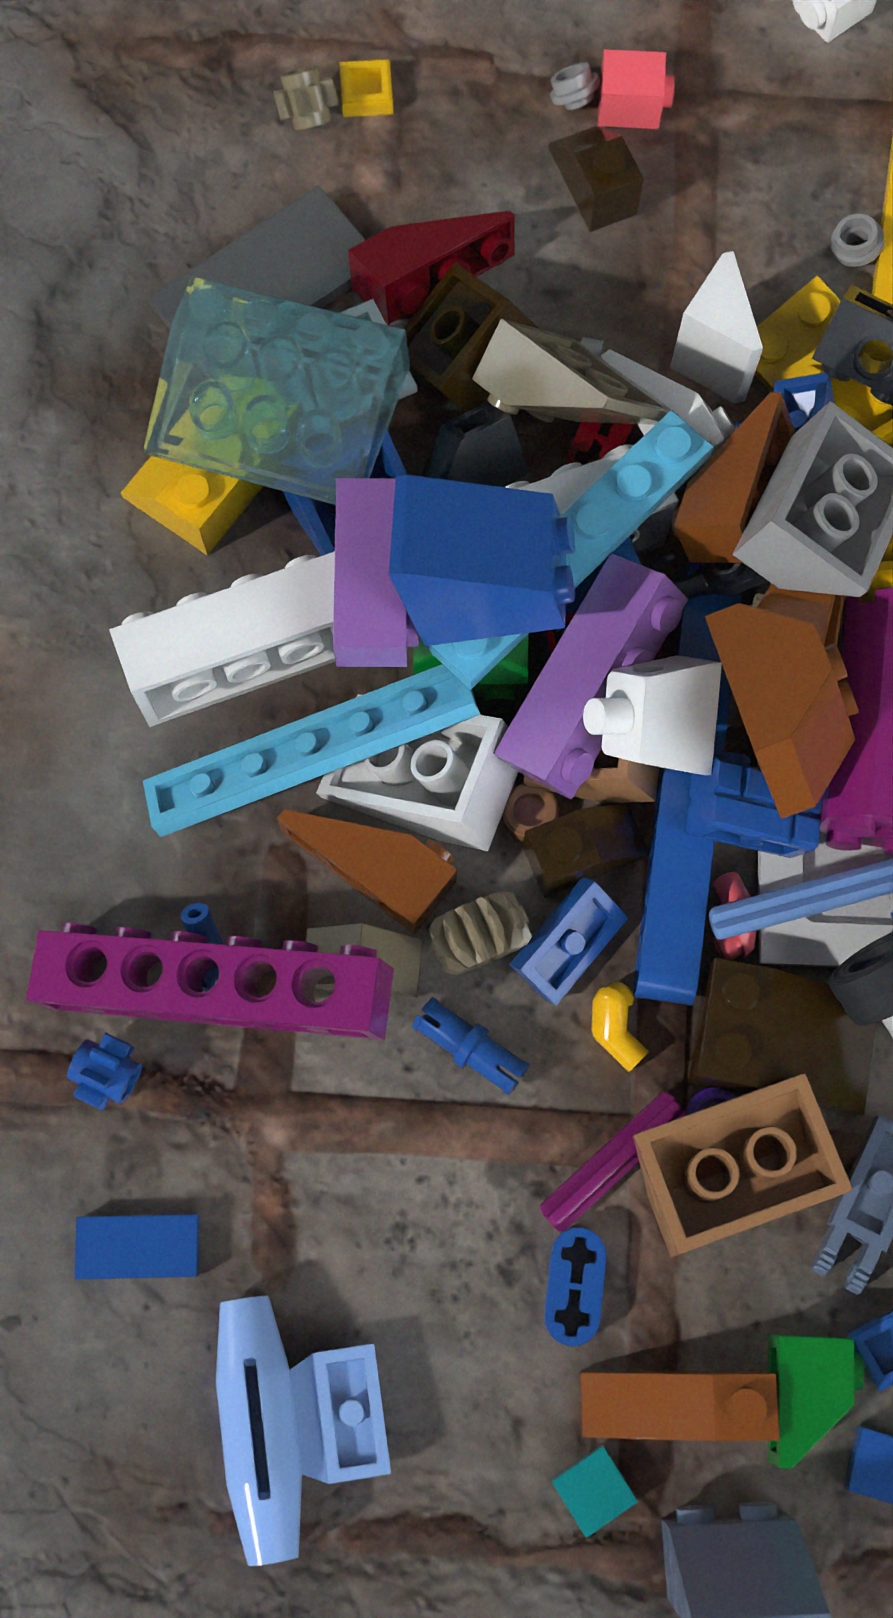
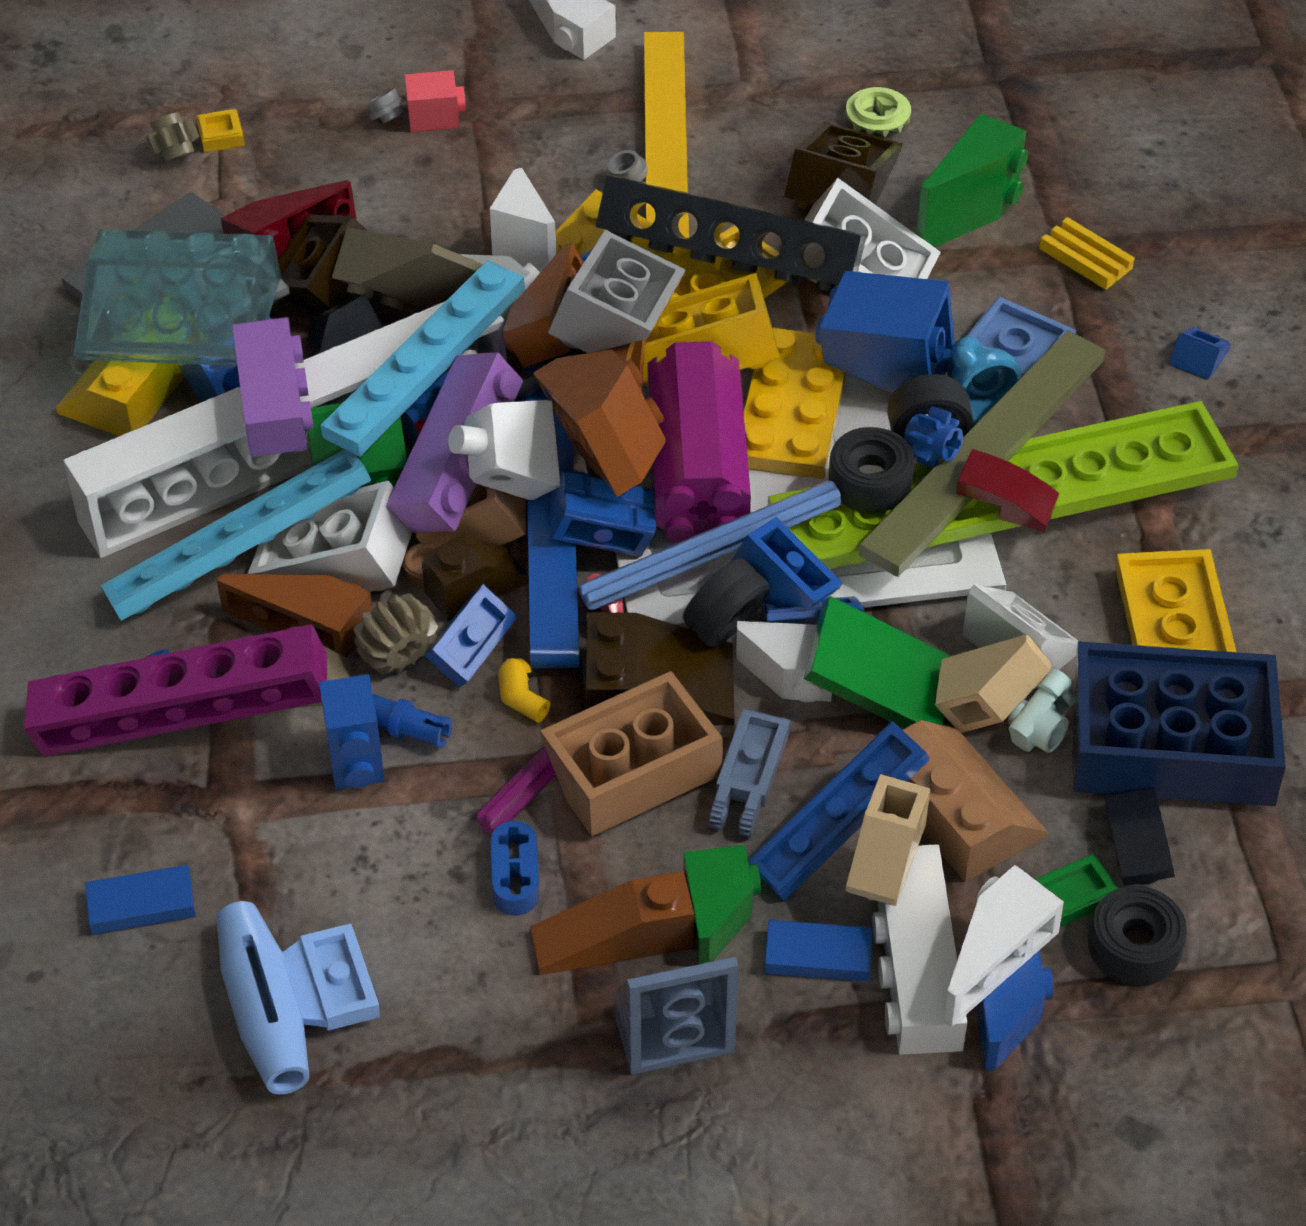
camera: 10 degrees left, 25 degrees down
(104, 1071) = (95, 776): blue gear -> none
(408, 1081) = (352, 731): none -> blue brick
(479, 559) = (350, 352): blue slope -> none
(594, 1491) = (554, 1003): teal tile -> none
(599, 175) = (417, 158): dark brown slope -> none

